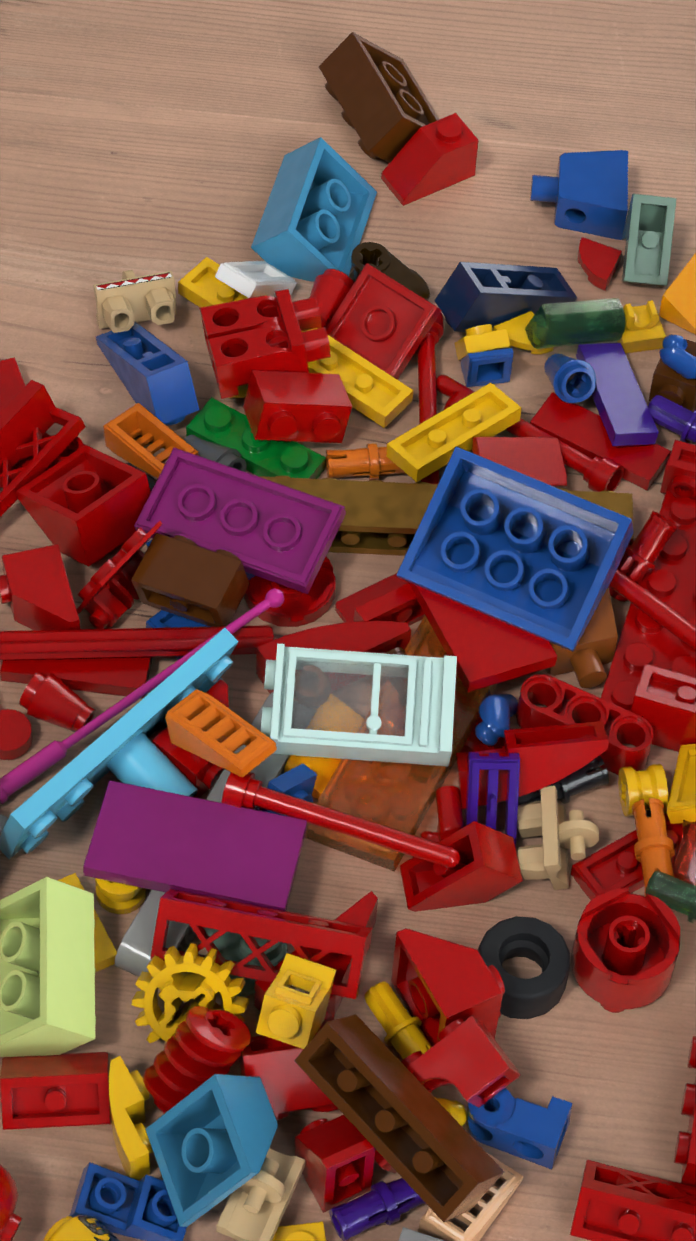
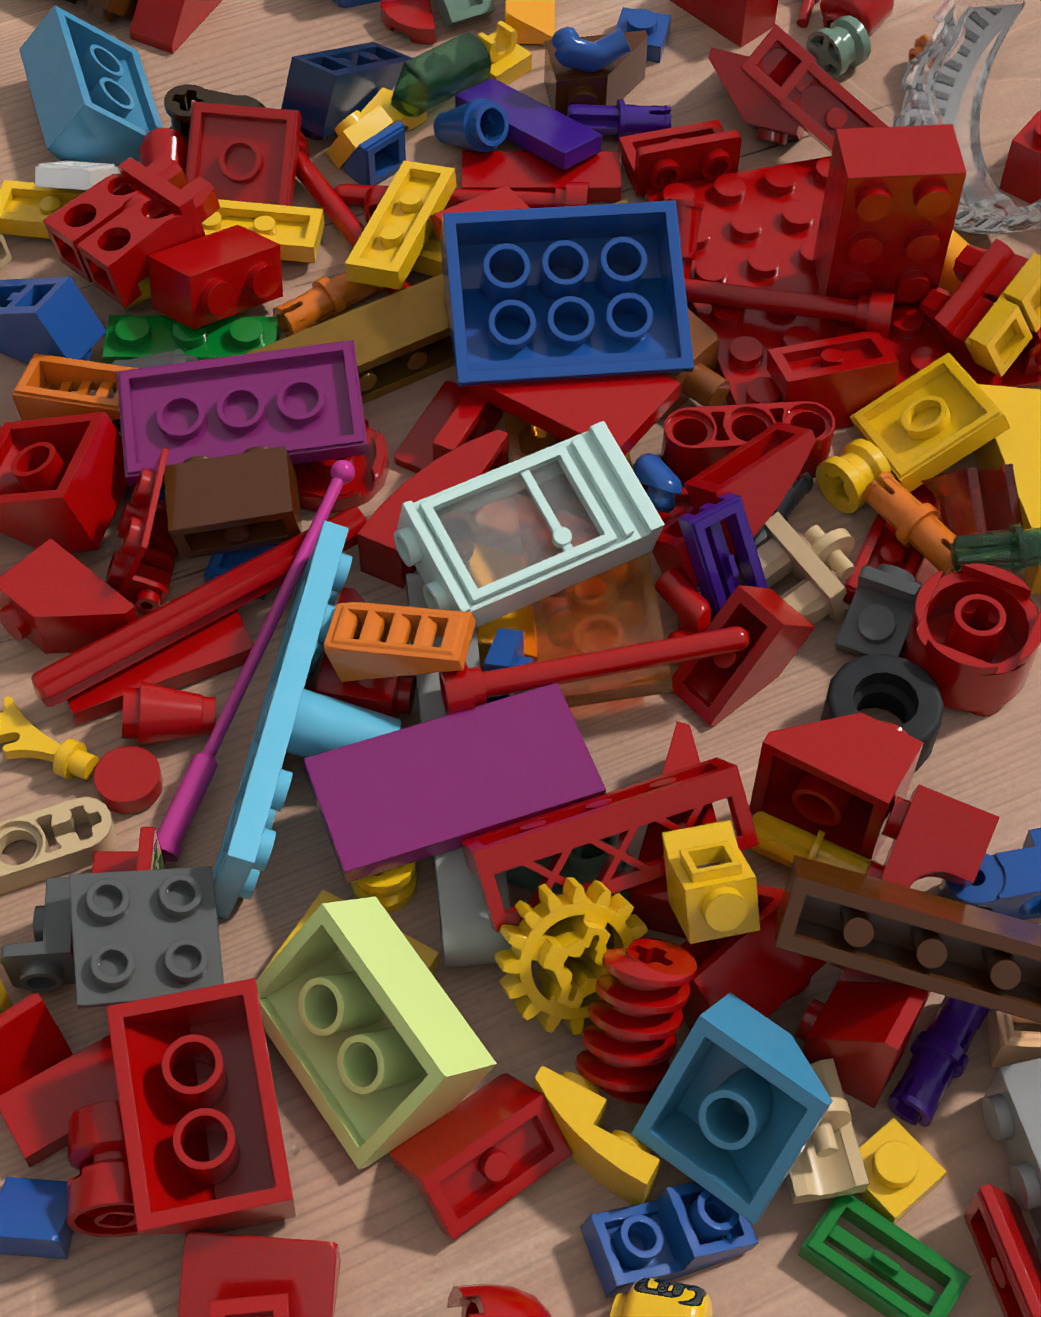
camera: 30 degrees left, 0 degrees up
(569, 897) = (879, 612): none -> dark grey bracket

